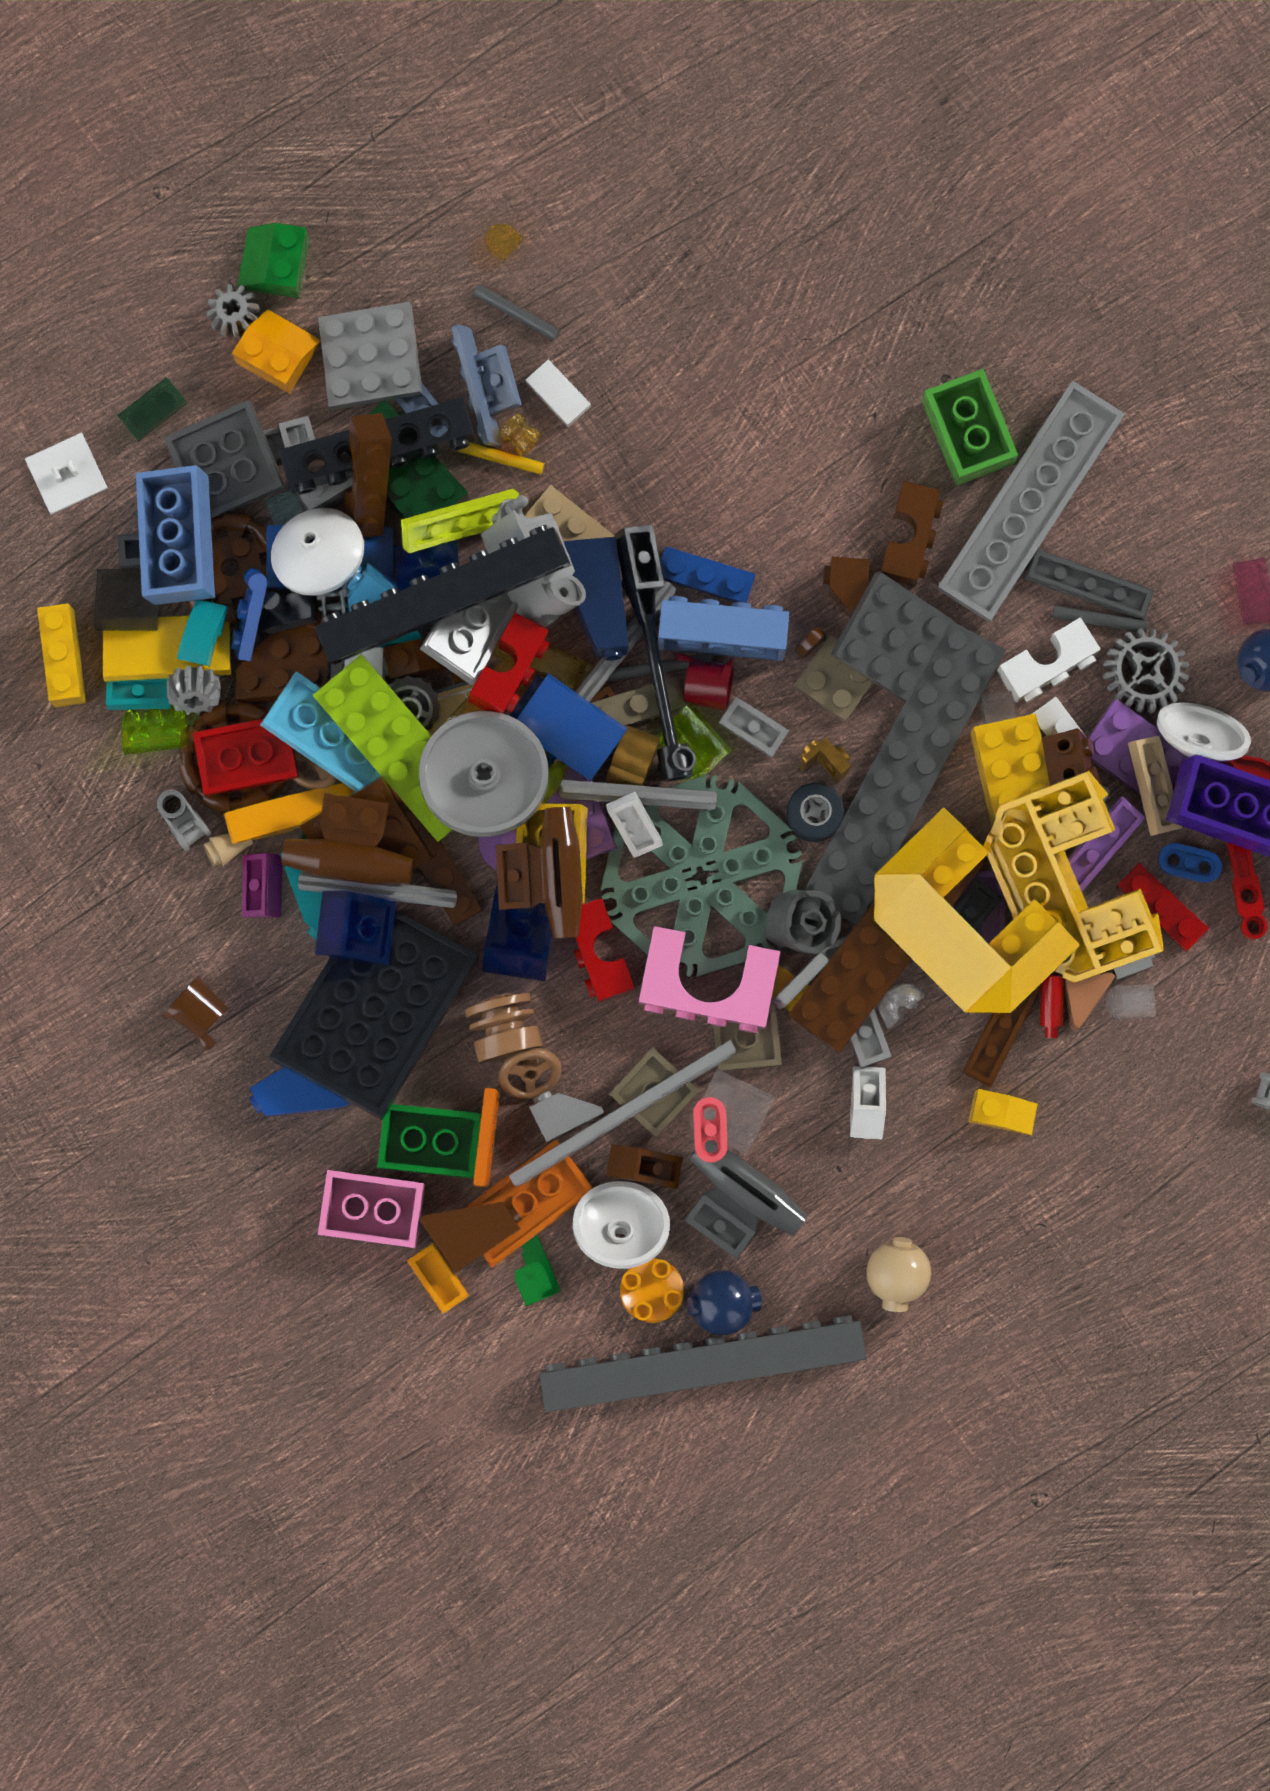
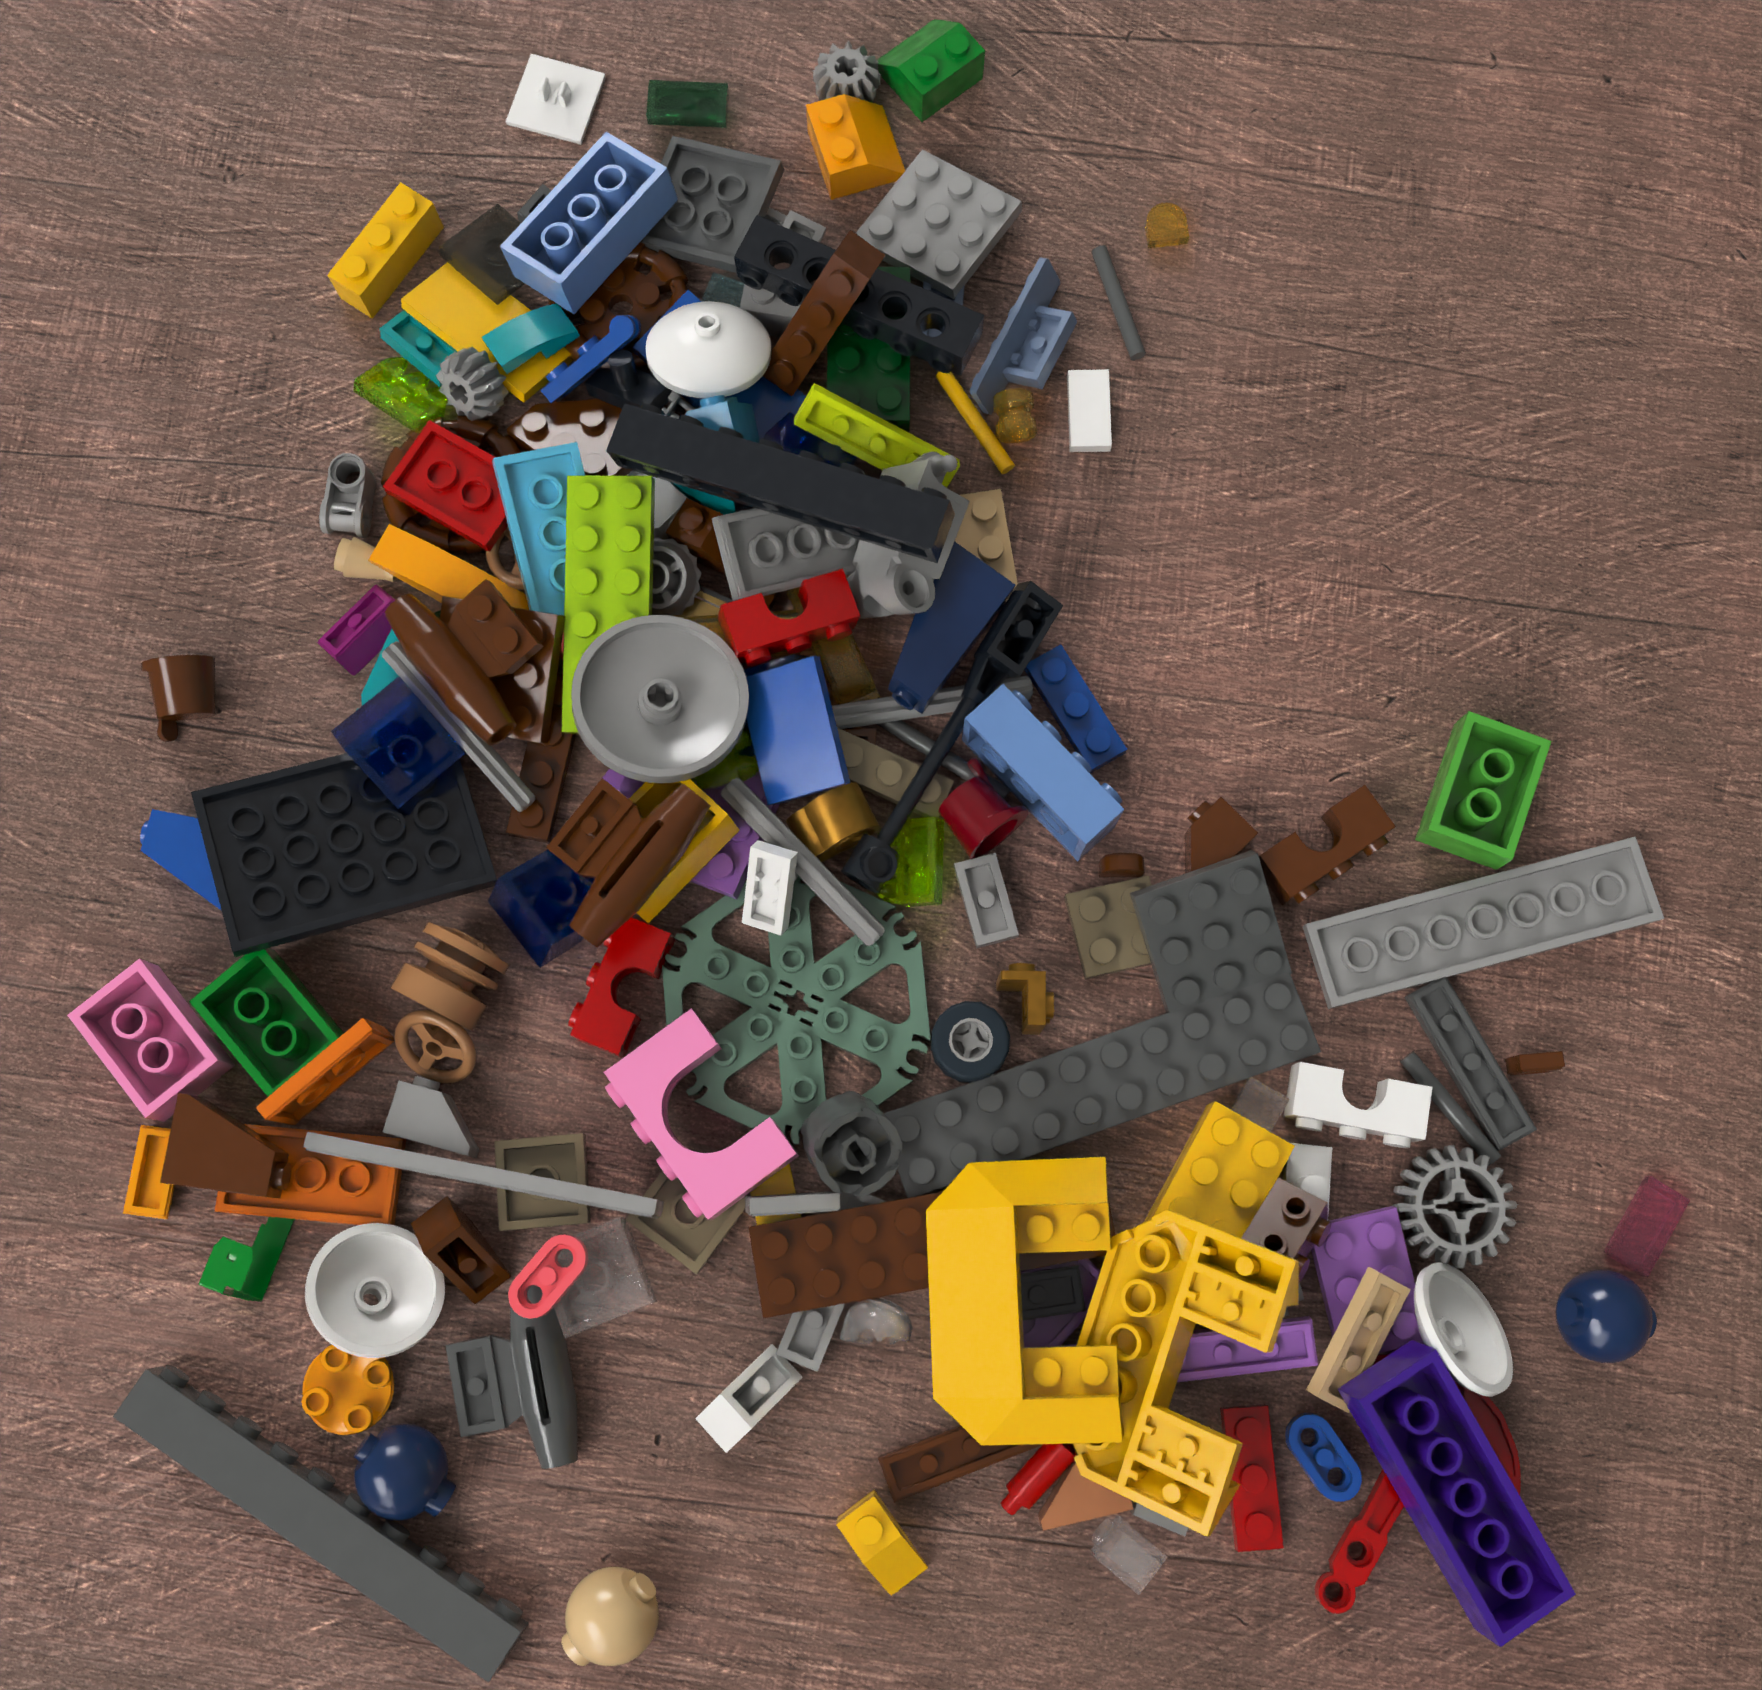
camera: 45 degrees right, 5 degrees down
(1123, 555) = (1535, 1063): none -> reddish brown tile

